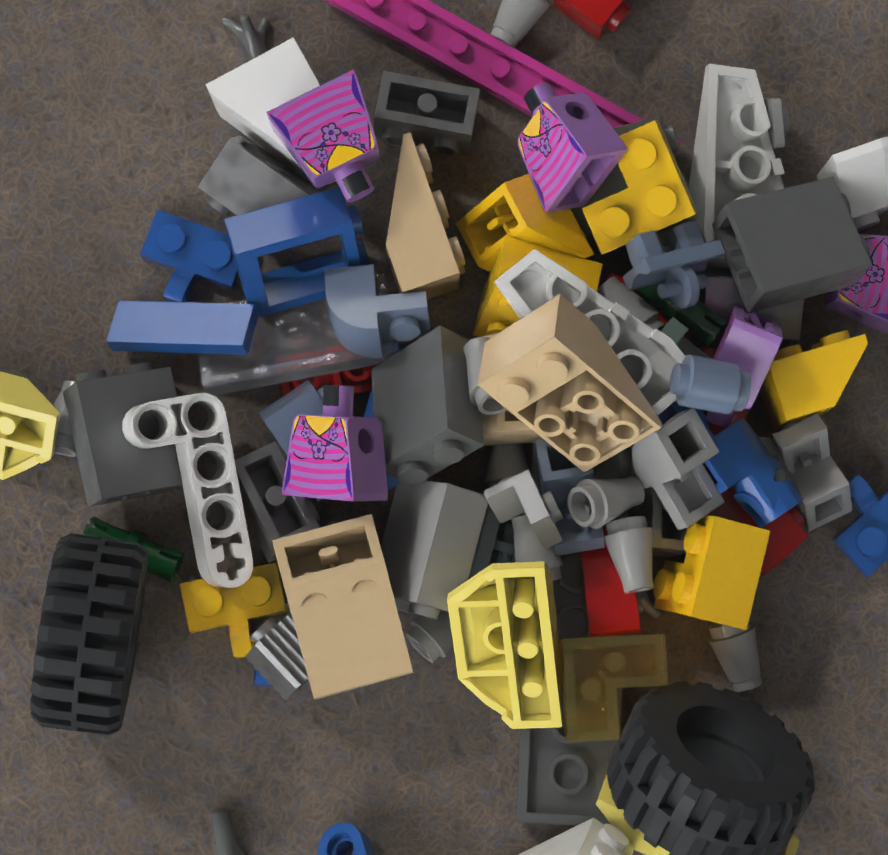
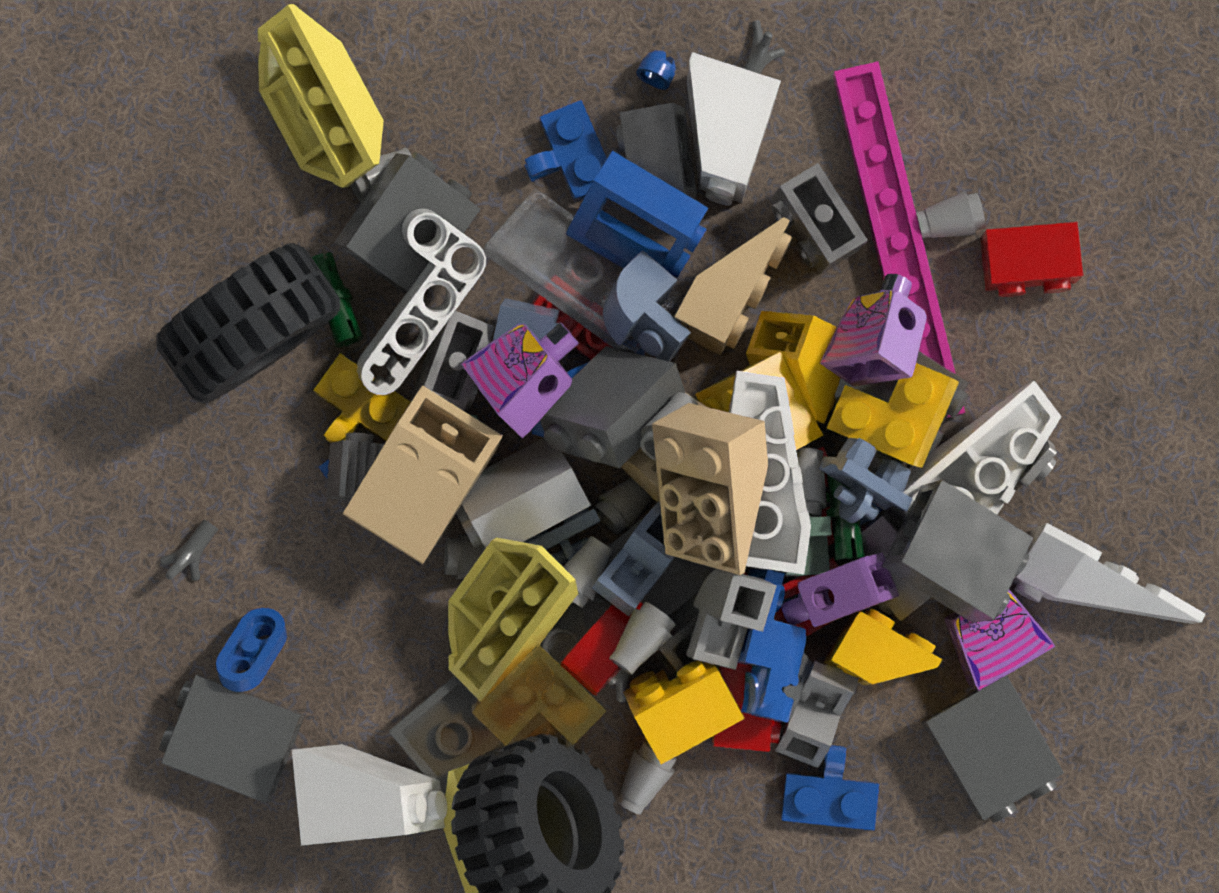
camera: 45 degrees right, 0 degrees up
(183, 327) = (515, 192): tile -> none
(189, 129) = (657, 69): none -> blue hinge
(330, 135) = (735, 168): torso -> none
(521, 495) = (611, 528): light grey bracket -> none
(602, 500) = (658, 584): light grey cone -> none
(710, 384) = (802, 582): sand blue brick -> none

